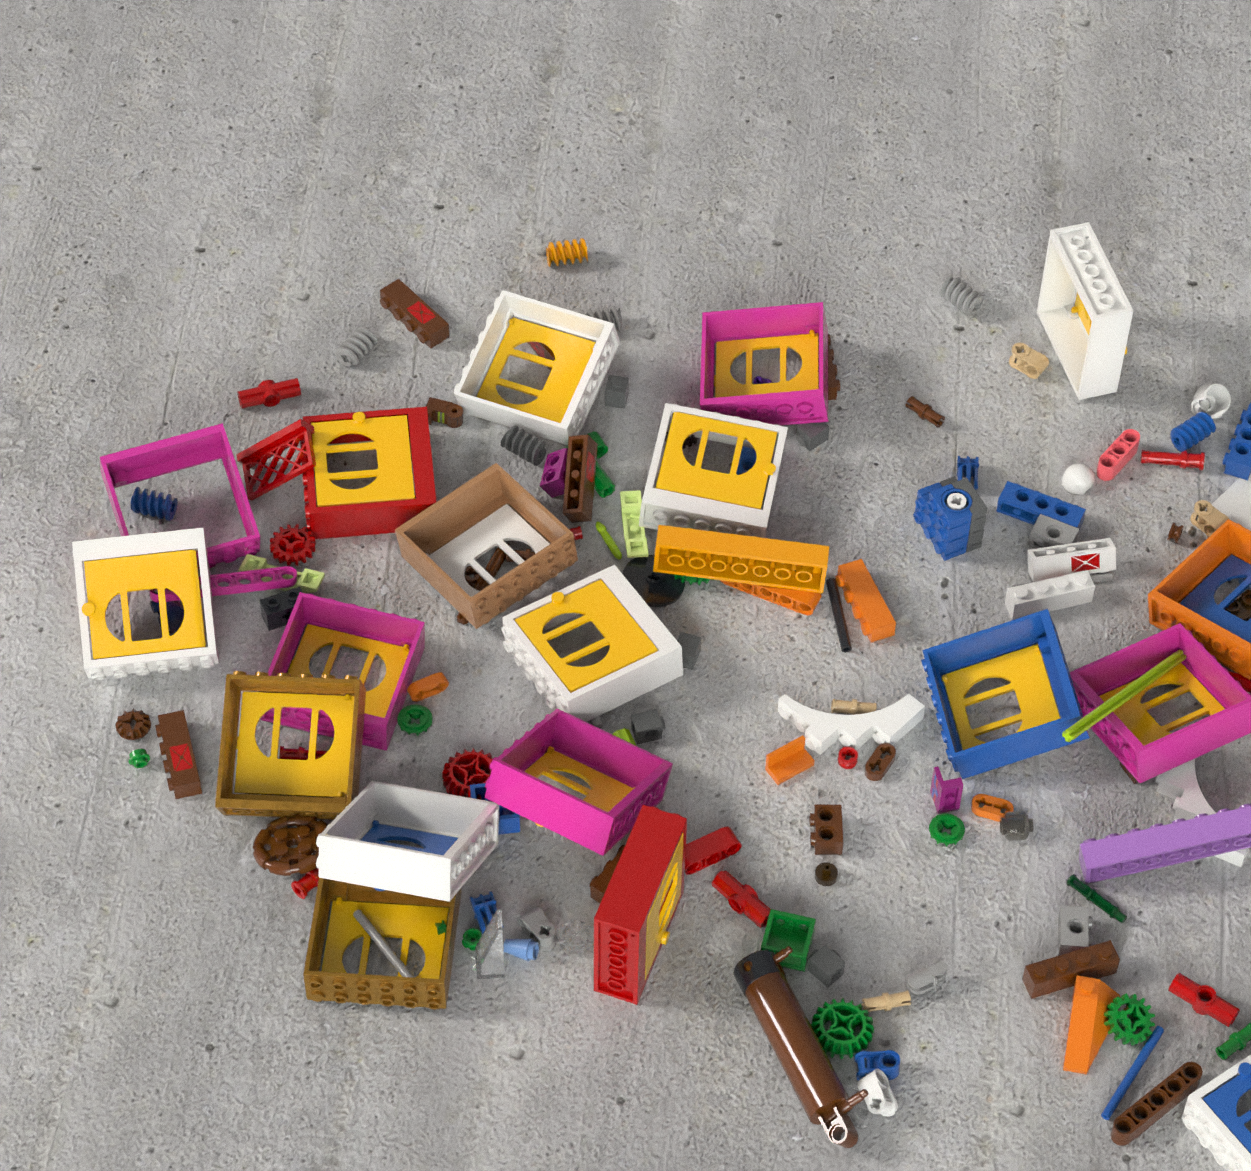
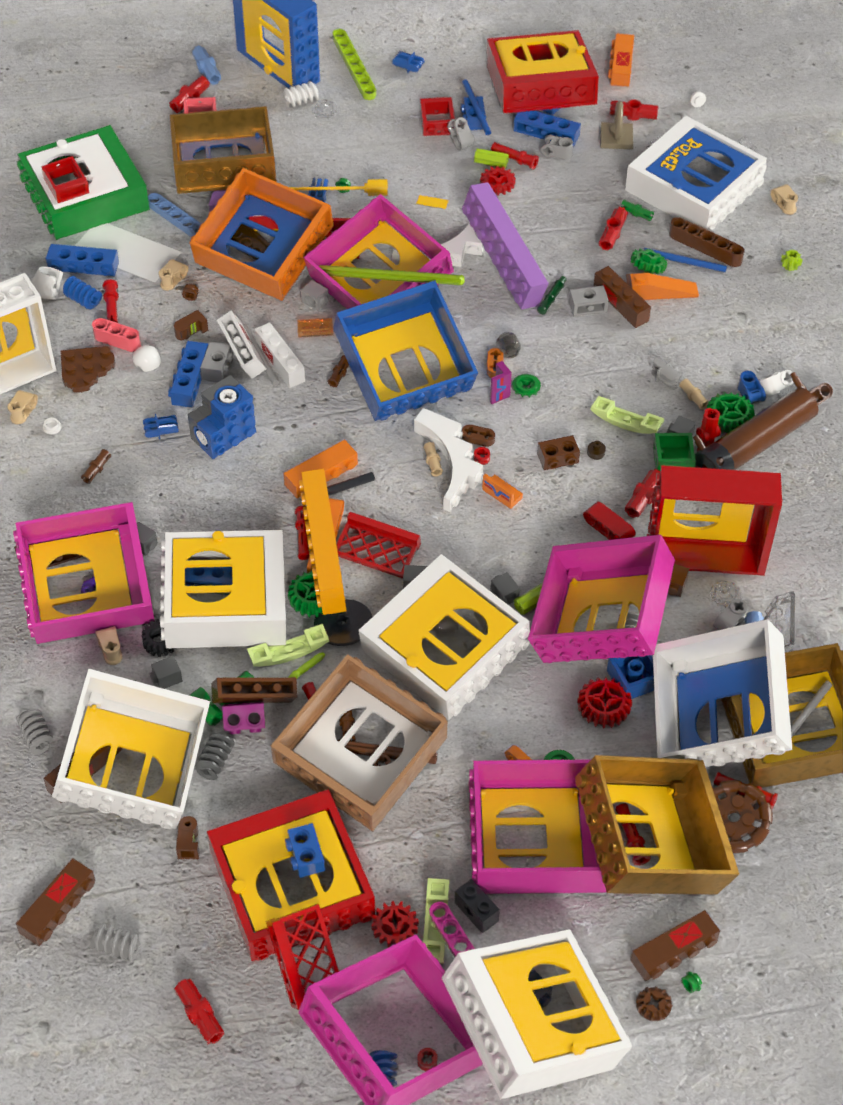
camera: 105 degrees left, 0 degrees up
(371, 466) = (308, 850): none -> blue brick
(635, 426) = (166, 673): none -> dark grey brick
(686, 389) = (110, 645): none -> tan piece
(758, 636) = (386, 533): none -> red fence
(801, 972) = (709, 429): none -> red piece
(868, 916) = (625, 419): none -> yellowish green slope
(994, 384) = (51, 425): none -> white plate
(1078, 423) = (84, 366): none -> reddish brown plate
(1090, 640) = (315, 327): none -> clear orange plate
(1120, 523) = (190, 325): none -> reddish brown leg

